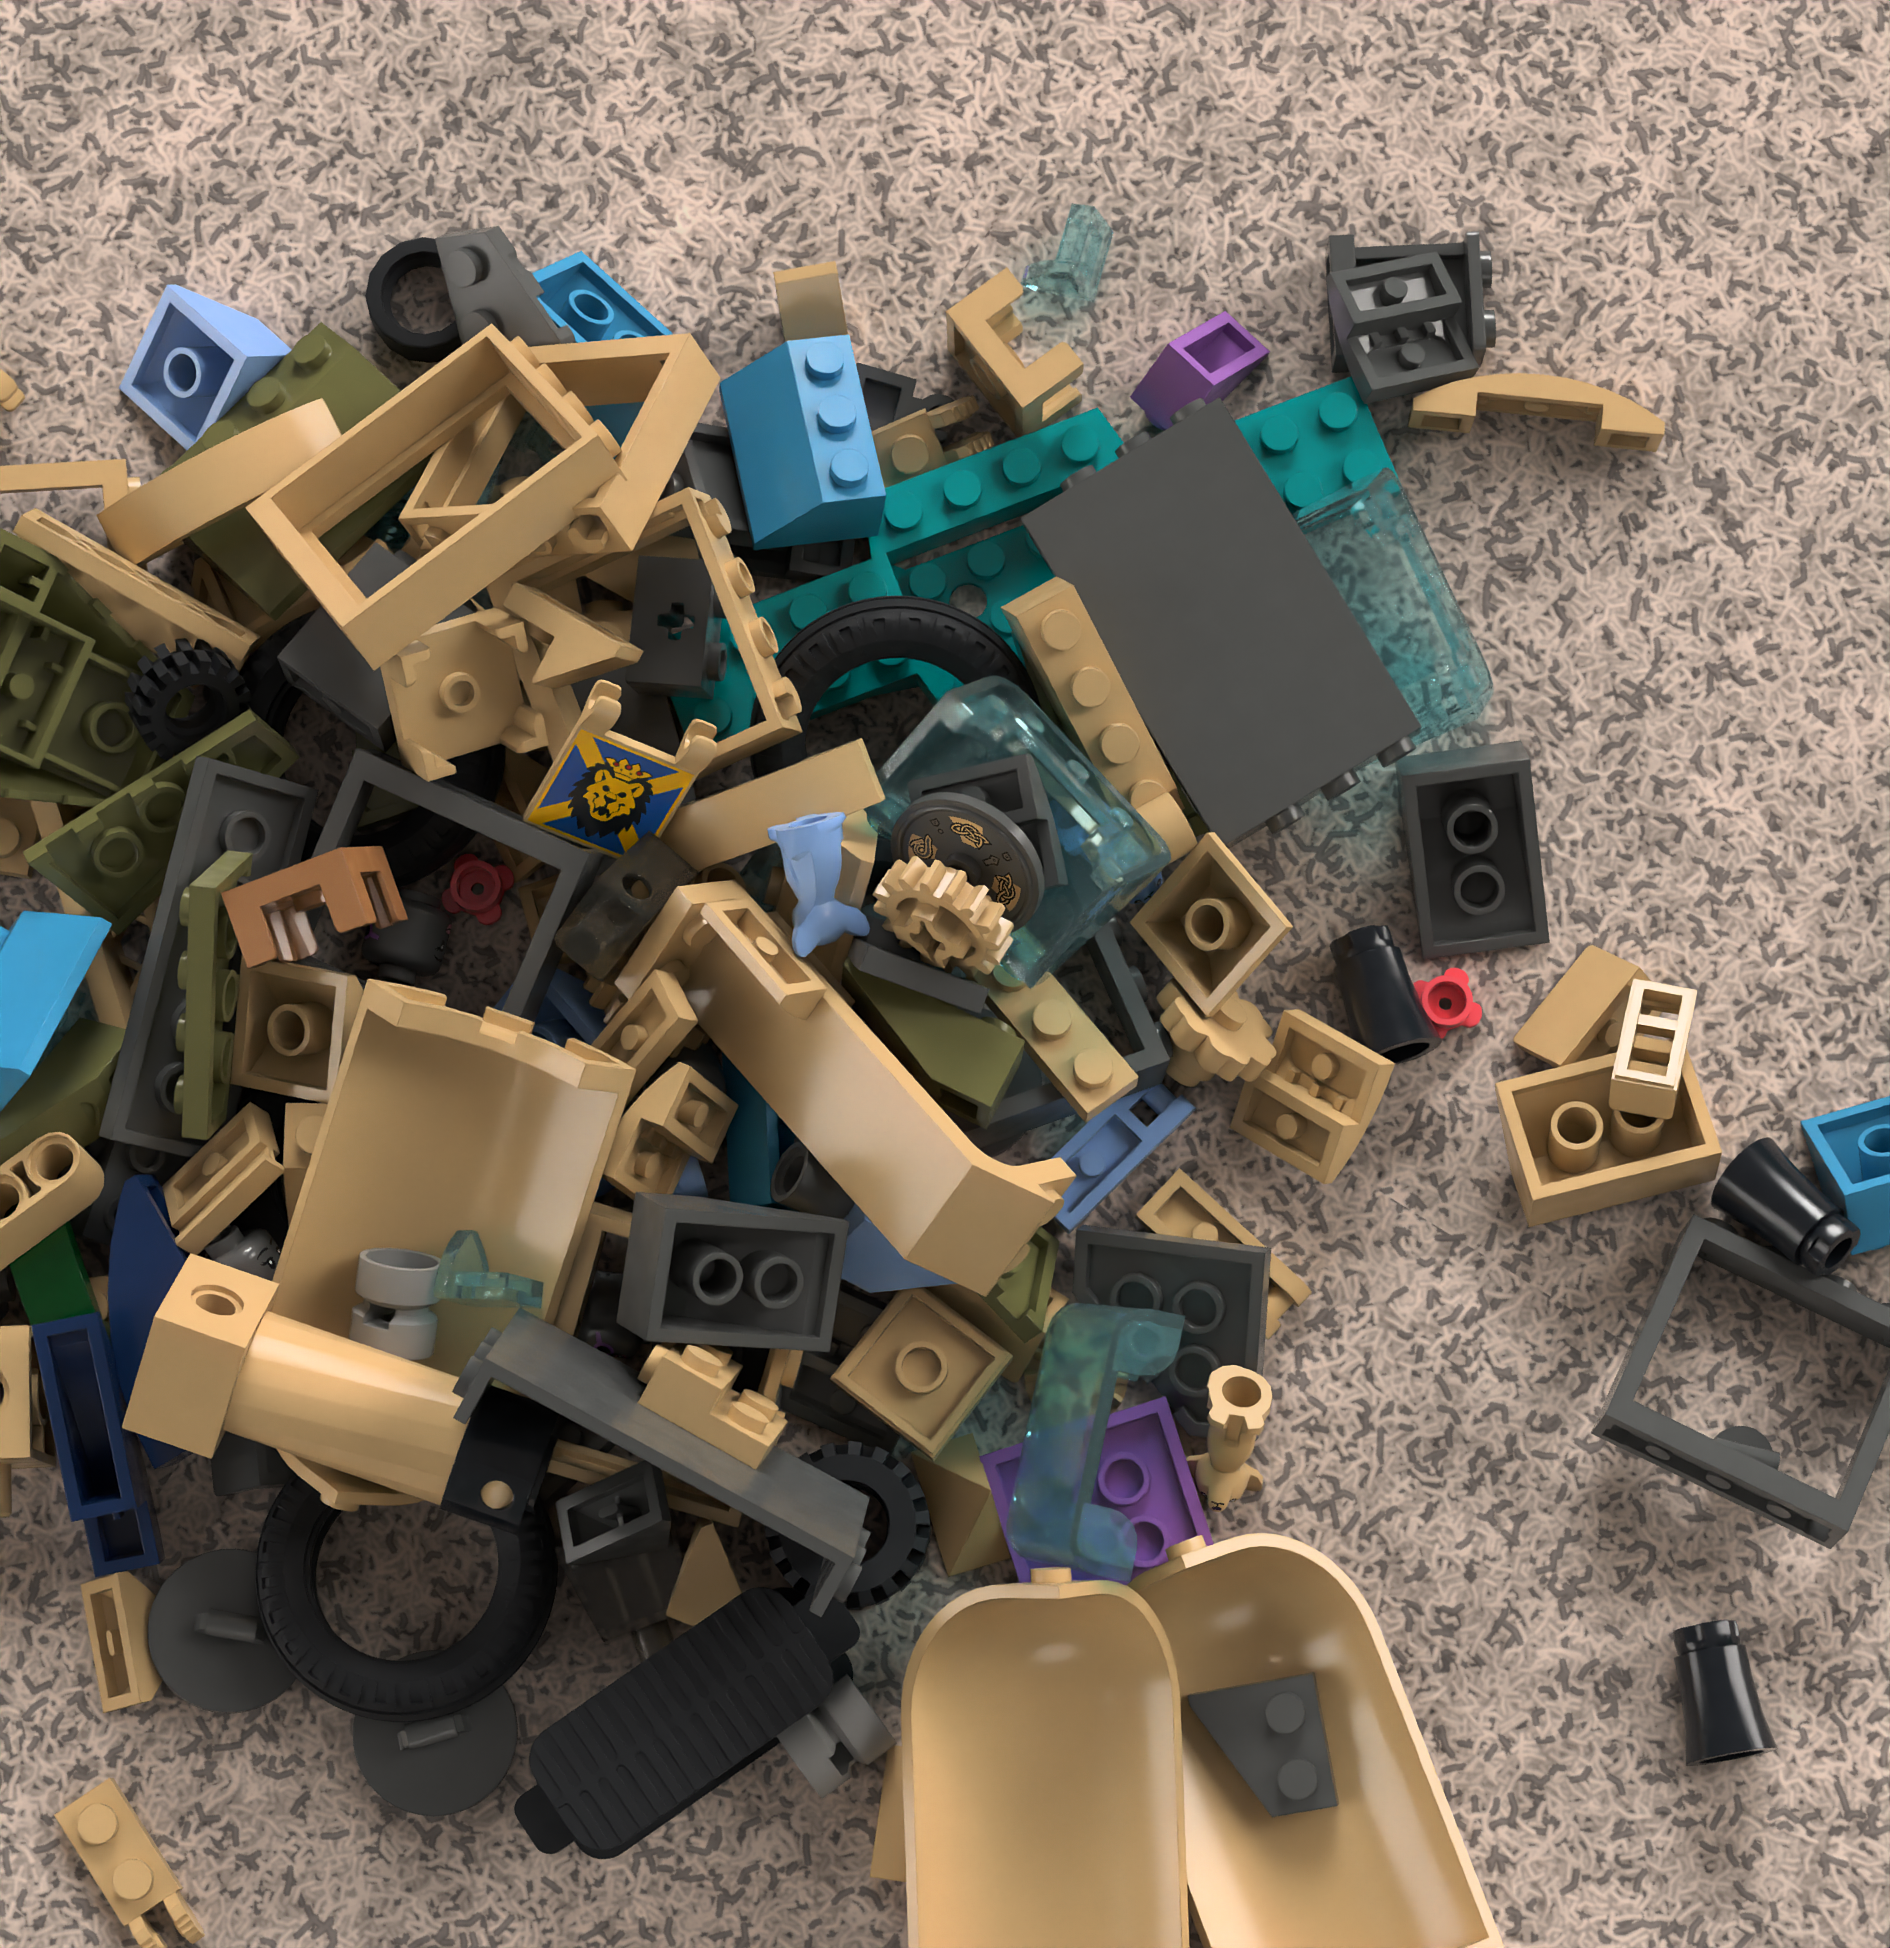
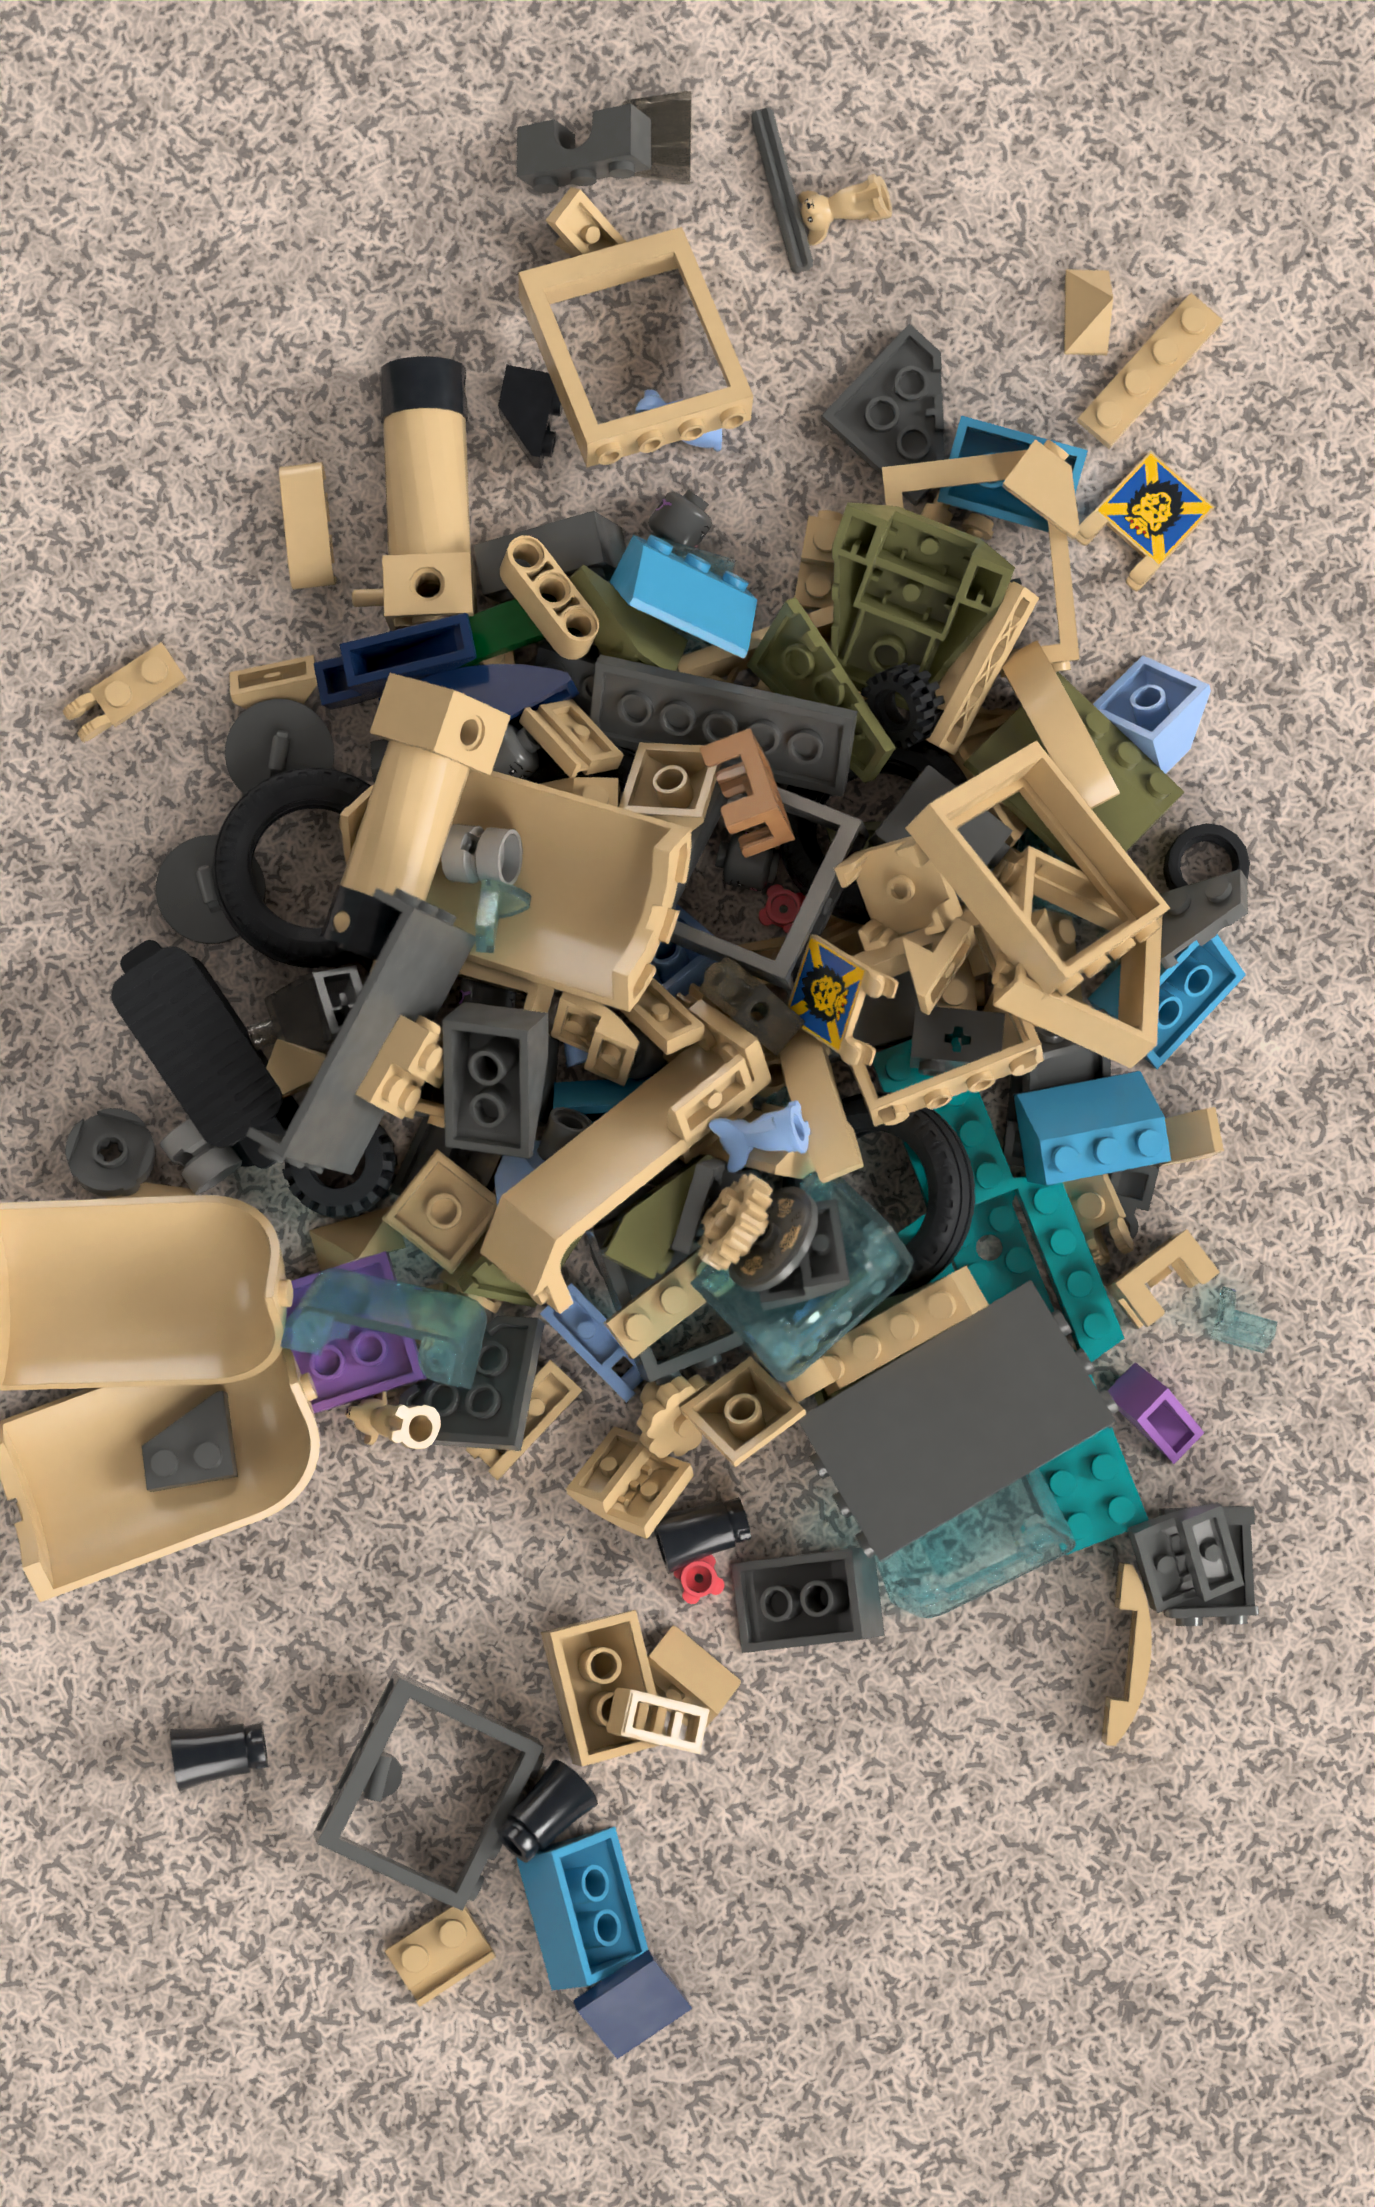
camera: 90 degrees right, 5 degrees up
(210, 997) = (690, 725): olive wing -> none
(866, 1854) = (121, 1175): none -> dark grey plate

